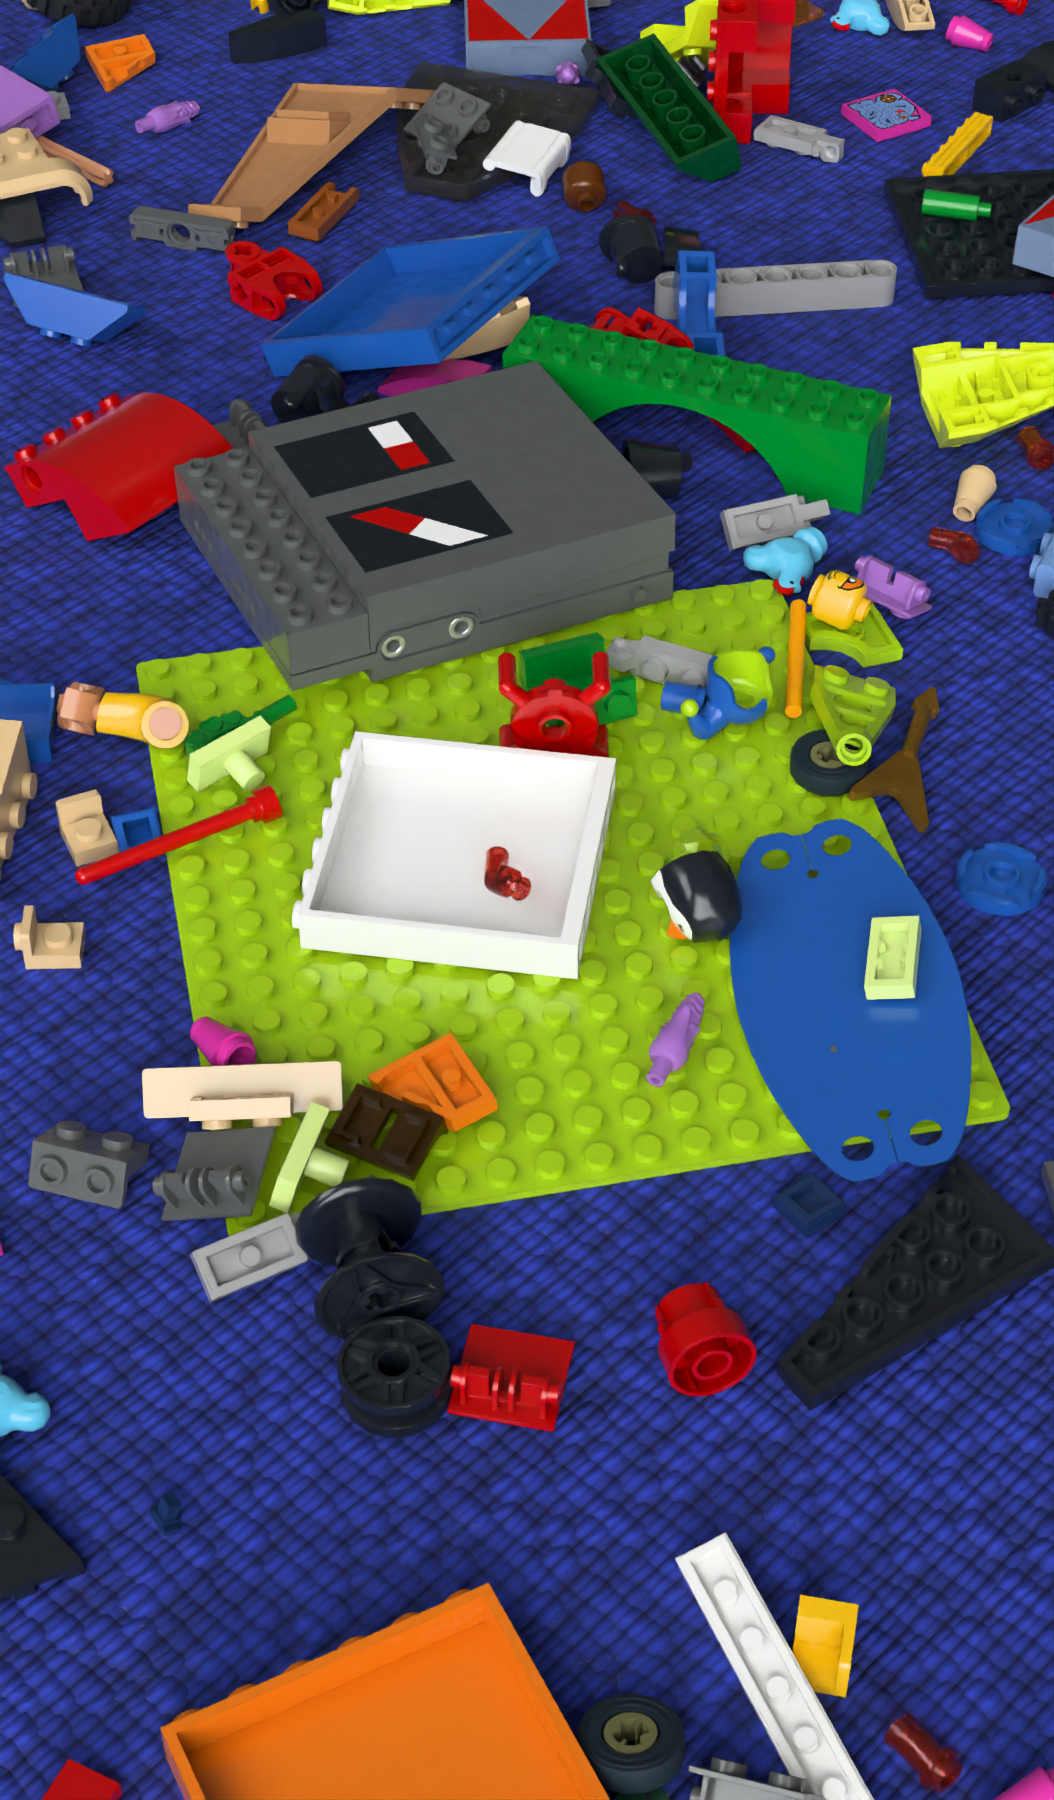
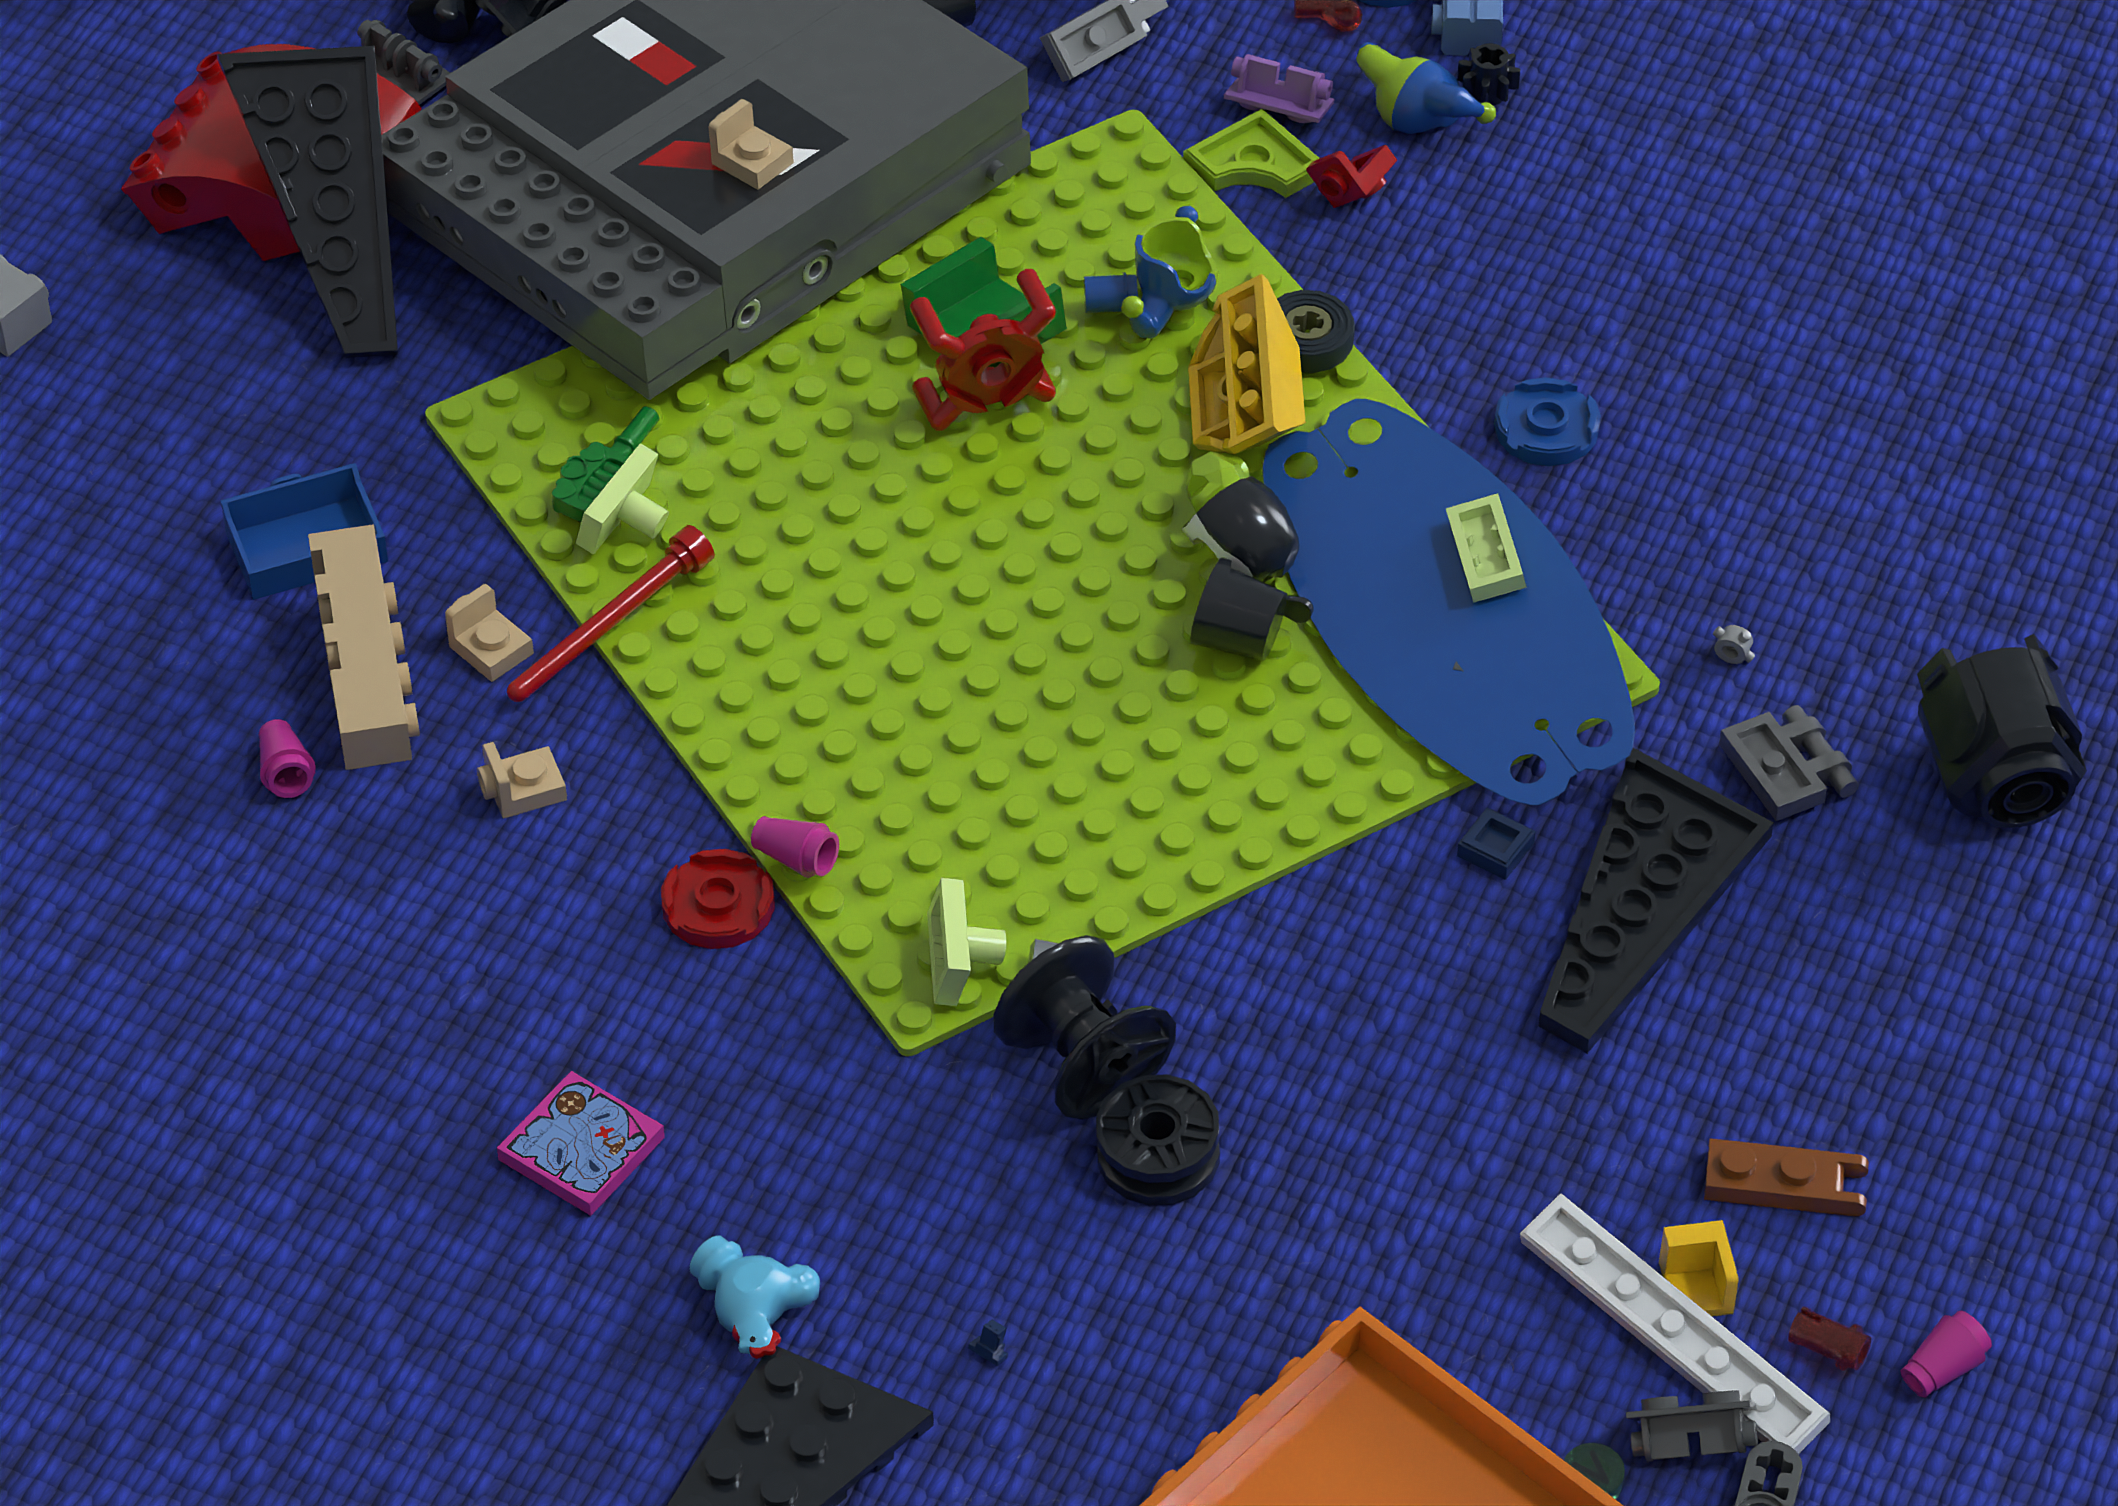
camera: 20 degrees left, 5 degrees up
(85, 1163) = (707, 1015): dark grey bracket -> none
(119, 1074) = (720, 913): none -> red tile
(122, 714) = (459, 481): piece -> none
(133, 469) = (323, 153): none -> black wing
(135, 828) = (546, 621): blue slope -> none
(216, 1174) = (862, 985): dark grey hinge -> none
(241, 1092) = (846, 890): bracket -> none
(249, 1257) = (944, 1060): light grey hinge -> none
(405, 1143) = (1050, 893): dark brown piece -> none
(411, 844) = (946, 550): white panel -> none
(428, 519) = (746, 149): none -> tan bracket
(438, 1081) = (1054, 822): orange wing -> none
(503, 879) = (1022, 569): clear red arm -> none
(511, 1377) = (1274, 1107): red hinge -> none
(636, 1718) = (1575, 1394): black bush -> none
(659, 660) = (1067, 253): light grey hinge -> none
(669, 958) = (1243, 613): none -> black hat
(673, 1043) = (1284, 708): medium lavender piece -> none
(702, 1341) = (1458, 1012): red piece -> none
(762, 779) = (1245, 372): none -> yellow wedge
(788, 559) = (1145, 79): medium azure animal -> none
(795, 659) = (1212, 208): light orange bar -> none
(839, 599) = (1236, 122): yellow head -> none
(851, 710) = (1316, 282): lime plate -> none
(901, 773) = (1388, 323): pearl gold piece -> none
(908, 664) = (1354, 179): none -> red bracket
(943, 1580) = (1783, 1177): none -> dark orange hinge
(997, 613) = (1417, 92): none -> blue piece

